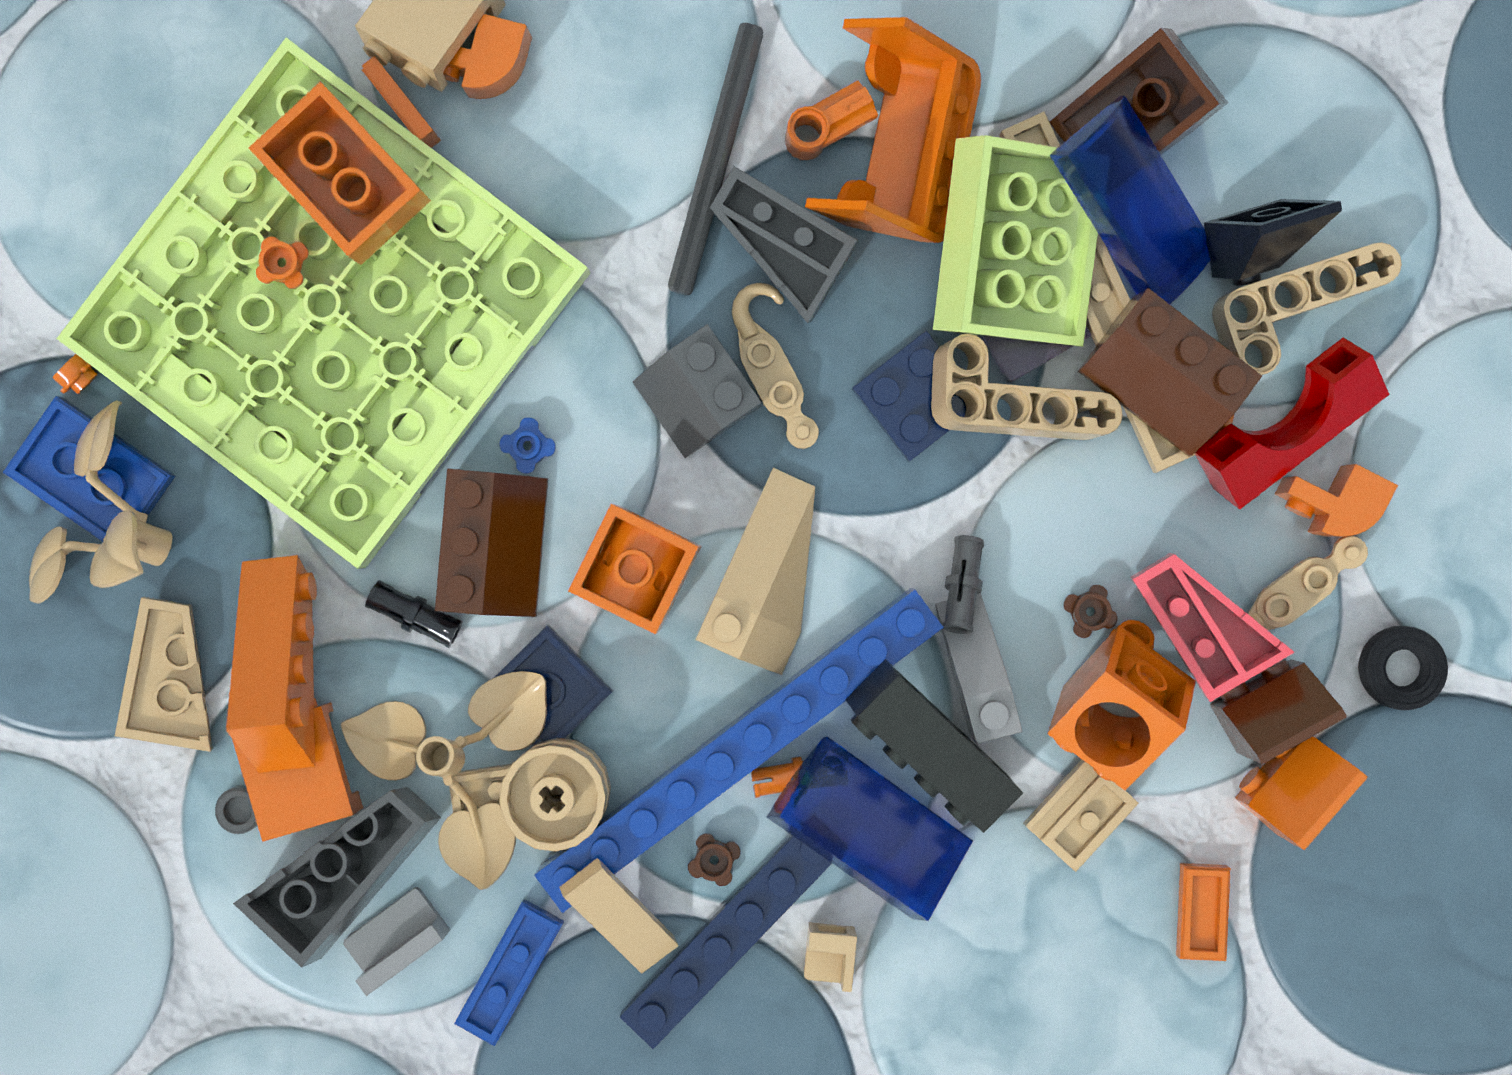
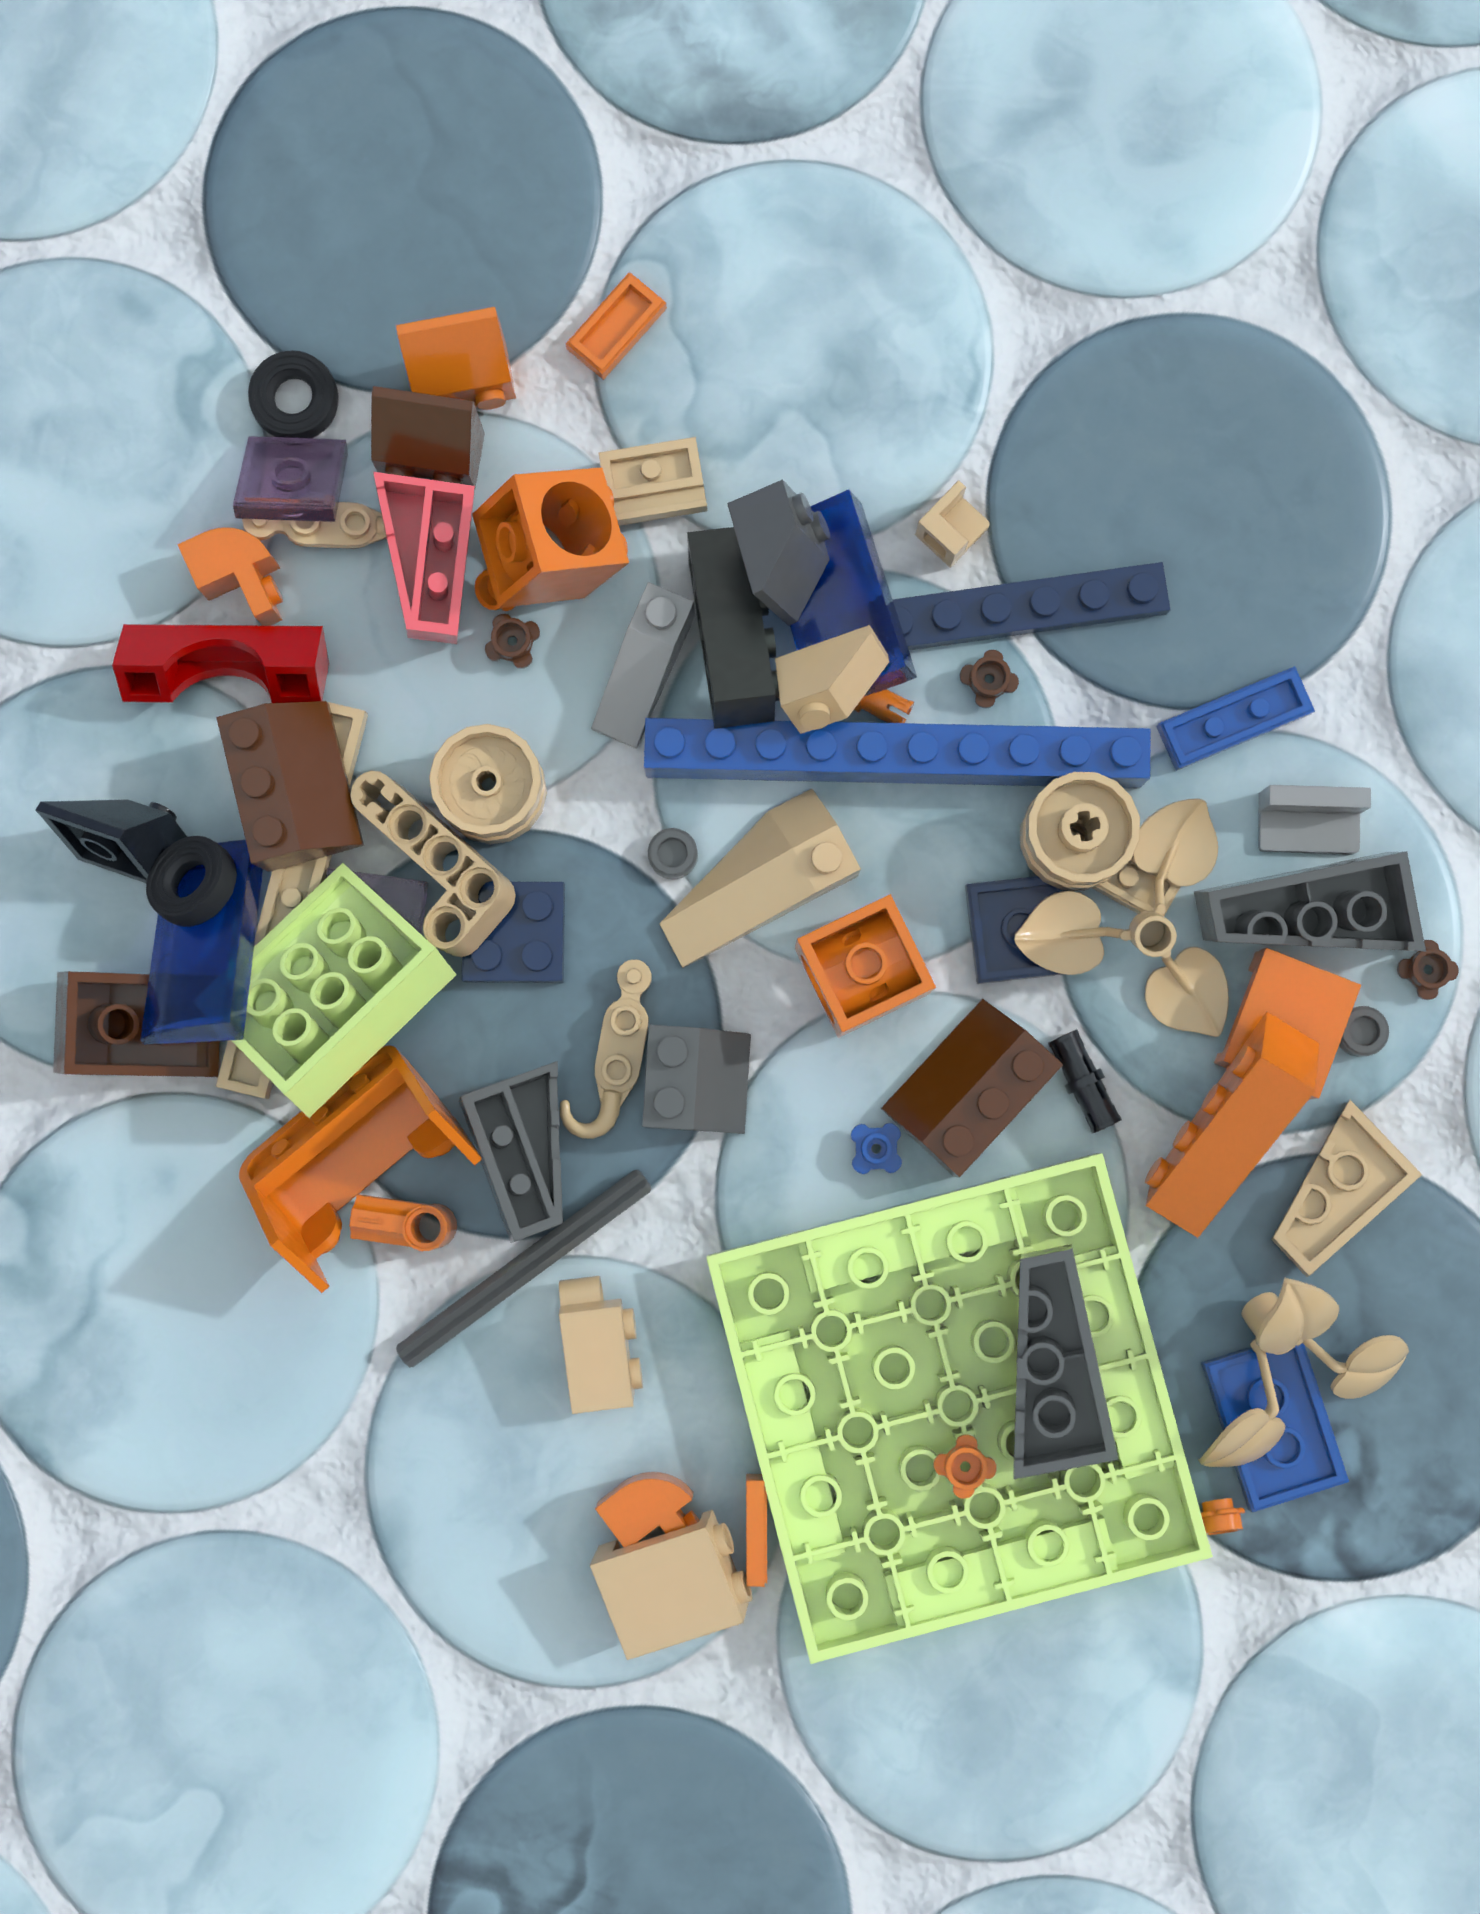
camera: 140 degrees left, 5 degrees down
(213, 900) = (1442, 970): none -> reddish brown plate
(255, 370) = (1058, 1384): none -> dark grey wedge
(339, 174) = (855, 1499): orange brick -> none
(616, 142) = (597, 1347): none -> tan hinge
(618, 915) = (1104, 690): tan tile -> none
(828, 762) = (829, 678): none -> tan slope
(846, 546) = (672, 853): none -> dark grey tile
(943, 834) = (780, 547): none -> dark grey slope
(963, 584) = (622, 720): dark grey pin -> none
(1041, 468) = (469, 760): none -> tan wheel
(1159, 244) = (208, 897): none -> black tyre
(1306, 295) = (125, 759): tan beam -> none
(1353, 602) = (290, 479): none -> clear purple tile

